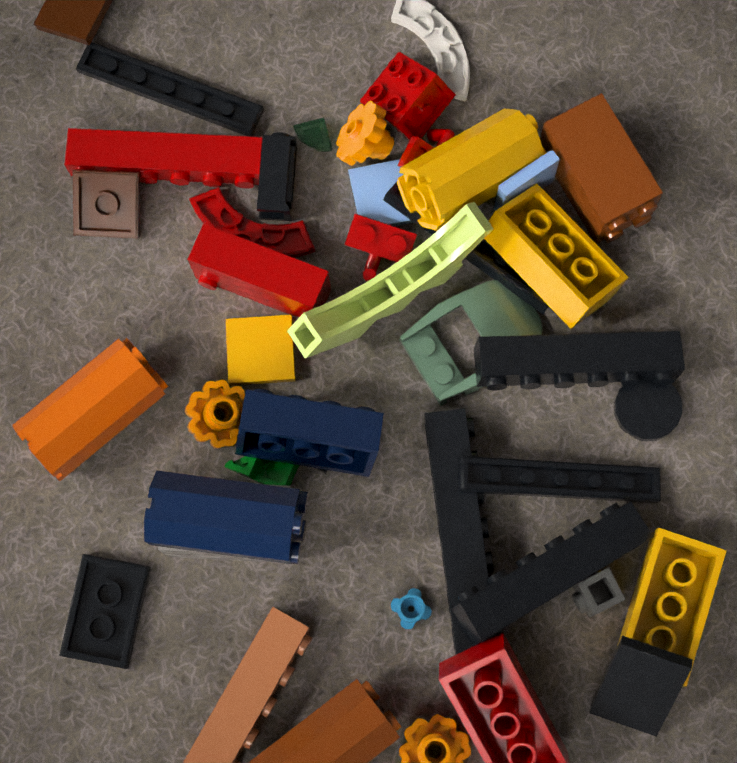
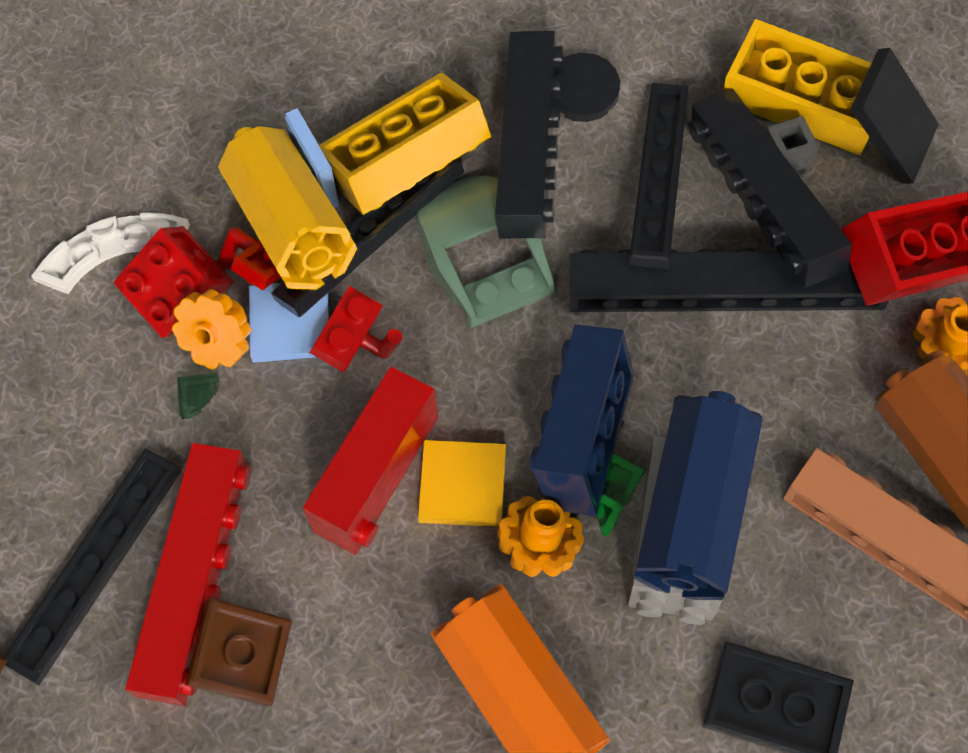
camera: 85 degrees left, 10 degrees down
(277, 177) = (259, 438): black window -> none
(285, 238) = (284, 513): red tile -> none
(394, 288) = (411, 308): yellowish green arch -> none
(413, 599) = (792, 335): dark azure plate -> none
(601, 169) = (320, 72): dark orange brick -> none

